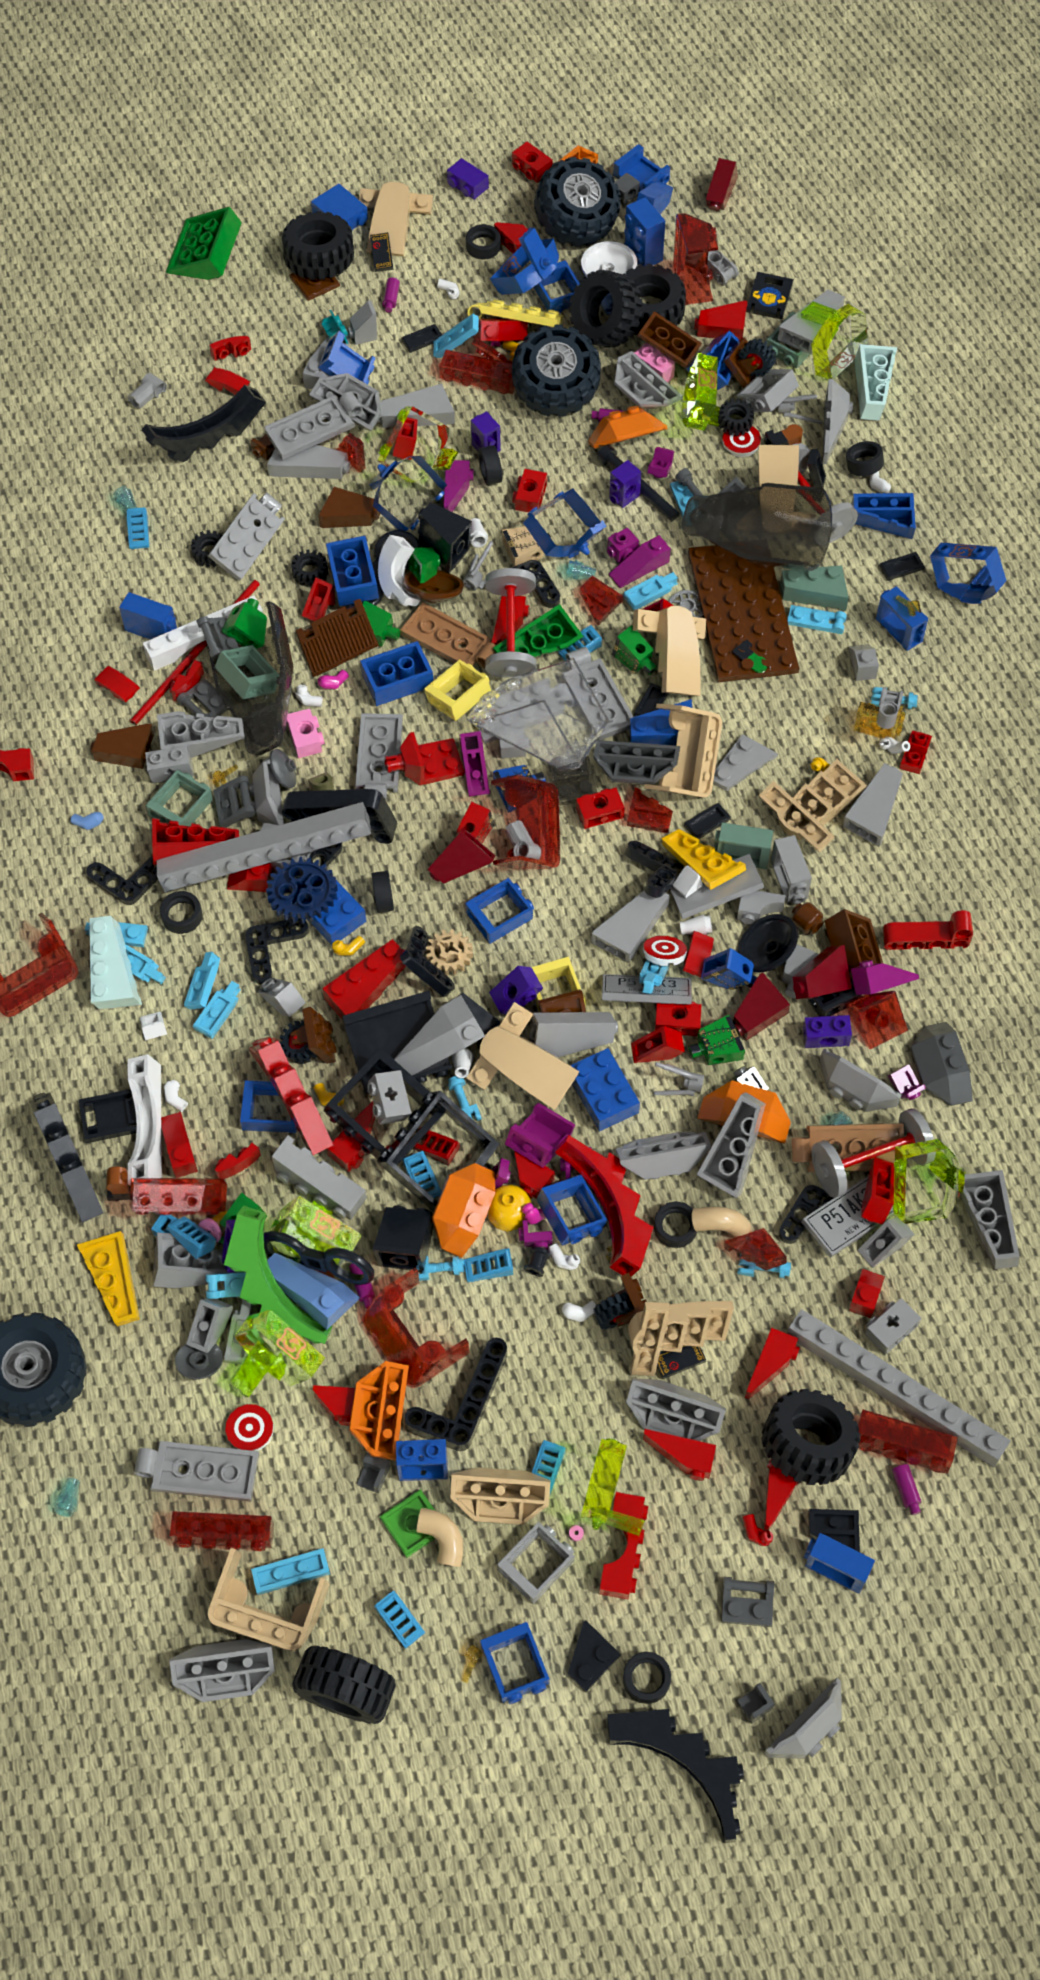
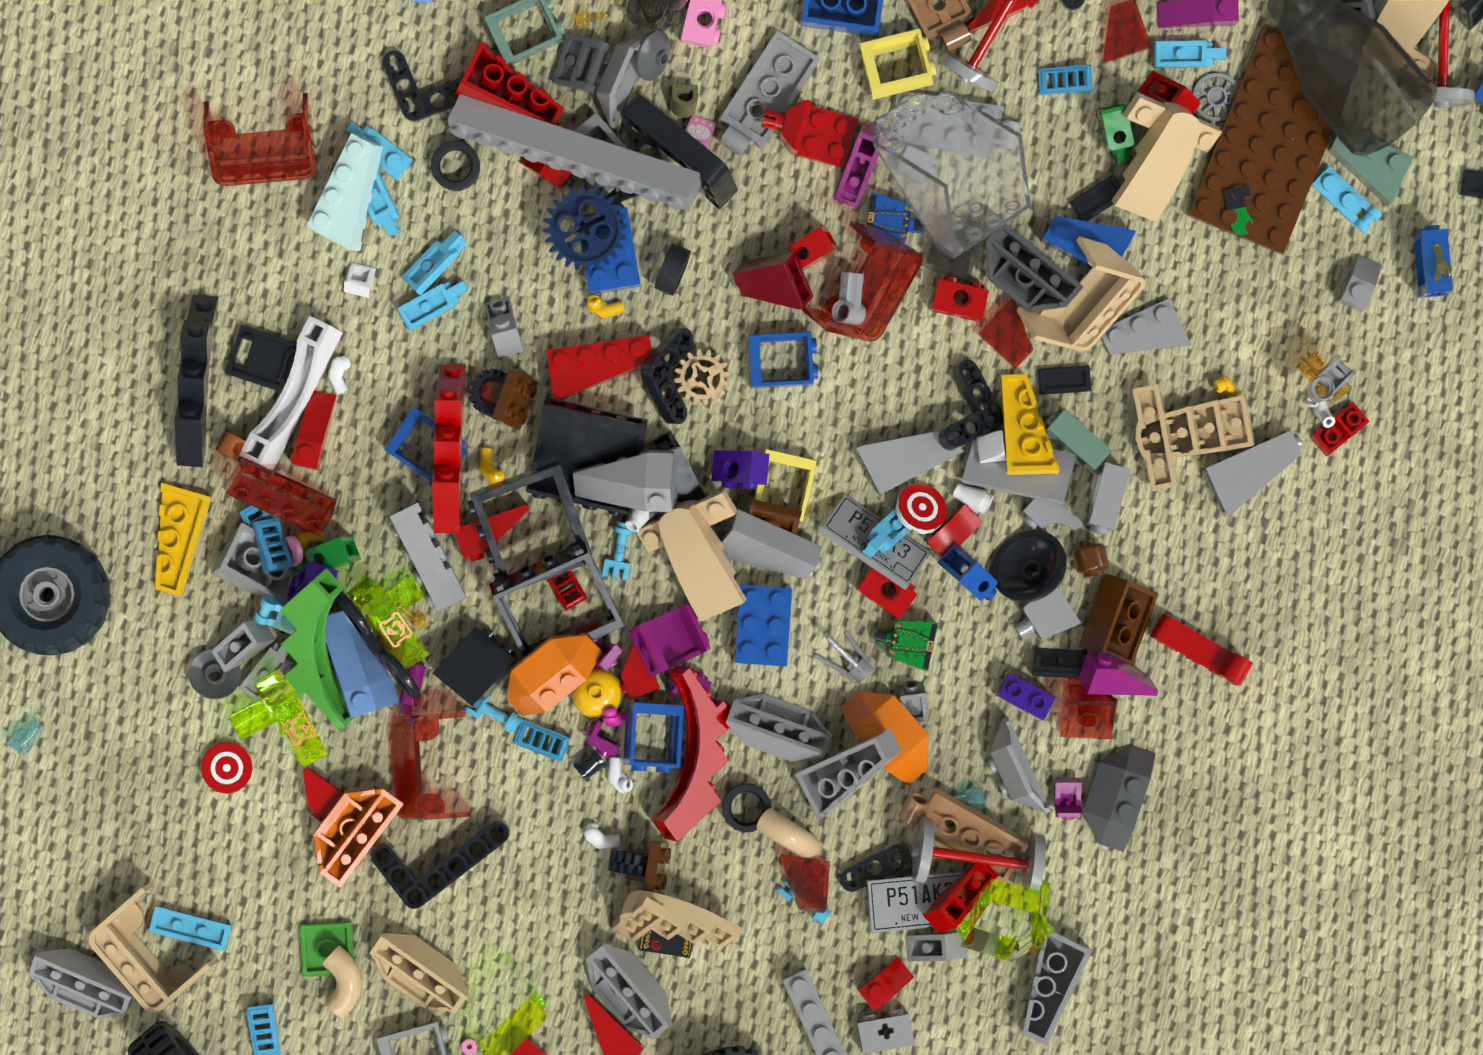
camera: 25 degrees right, 25 degrees up
(210, 1471) = (167, 789): light grey hinge -> none
(221, 1530) = (147, 855): clear red brick -> none
(231, 1166) = (351, 487): red slope -> none
(264, 937) = (527, 247): black beam -> none
(373, 1473) = (314, 883): dark grey panel -> none
(389, 1097) = (540, 537): light grey brick -> none
(415, 1159) = (541, 612): dark azure slope -> none
(422, 1455) = (369, 904): blue window -> none
(545, 634) = (1030, 52): green wedge -> none
(556, 1449) = (494, 958): dark azure slope -> none
(605, 692) = (1048, 163): light grey hinge -> none
(658, 1045) = (847, 610): red slope -> none
(760, 1008) = (975, 630): dark red slope -> none
(774, 1358) = (752, 996): red slope -> none
(823, 974) = (1056, 640): dark red slope -> none
(910, 700) = (1351, 343): medium azure hinge -> none

